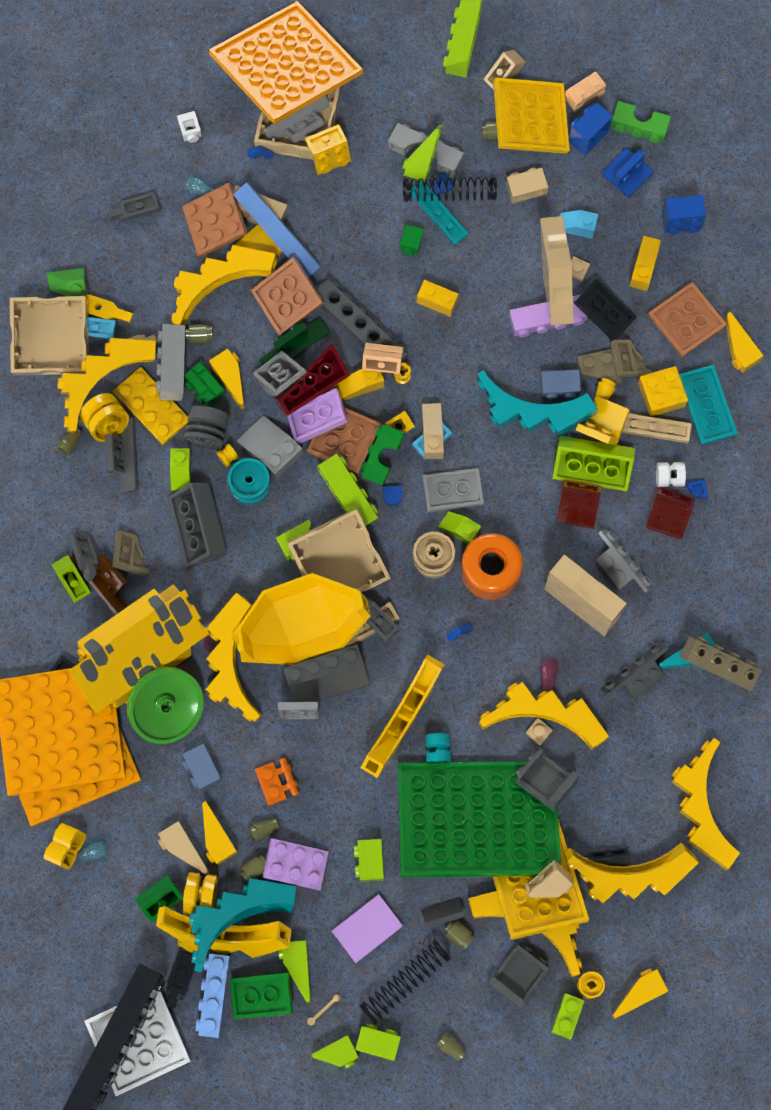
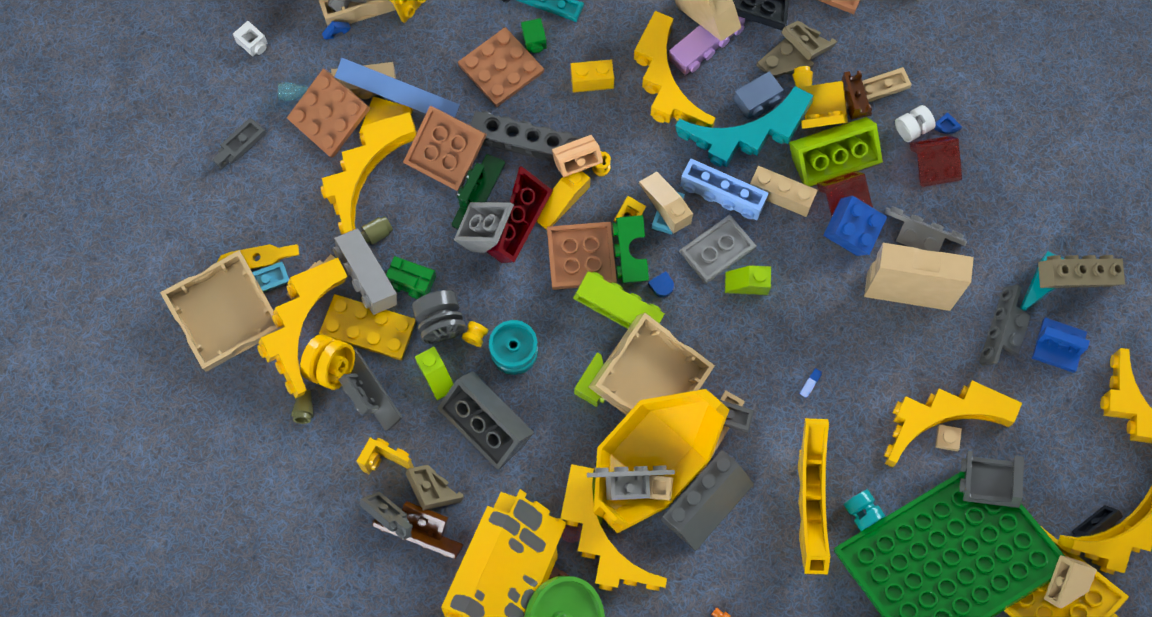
camera: 30 degrees left, 5 degrees down
(68, 282) = (211, 249): bright green slope -> none
(71, 578) = (385, 546): lime slope -> none
(98, 504) = (370, 455): none -> yellow bracket
(228, 371) = (427, 251): yellow slope -> none
(270, 446) = (513, 300): light grey slope -> none
(270, 631) = (629, 484): none -> light grey bracket
(295, 647) = (660, 487): none -> tan plate
(298, 710) = (706, 549): light grey tile -> none
(317, 416) = (545, 247): lavender plate -> none
(372, 252) = (500, 67): none -> nougat plate
(437, 544) = (743, 308): tan wheel -> none
(484, 446) = (723, 189): none -> light blue brick
(491, 586) = (795, 319): orange piece -> none
(498, 303) = (658, 78): none -> yellow arch
(530, 471) = (784, 191): none -> tan brick
(548, 675) = (922, 376): clear pink cone -> none
(567, 530) = (855, 226): none -> blue brick
(636, 426) = (856, 96): none -> reddish brown hinge
(662, 391) = (858, 50): yellow brick -> none
(672, 709) = (1060, 345): none -> blue bracket
(708, 405) = (905, 43): teal plate -> none

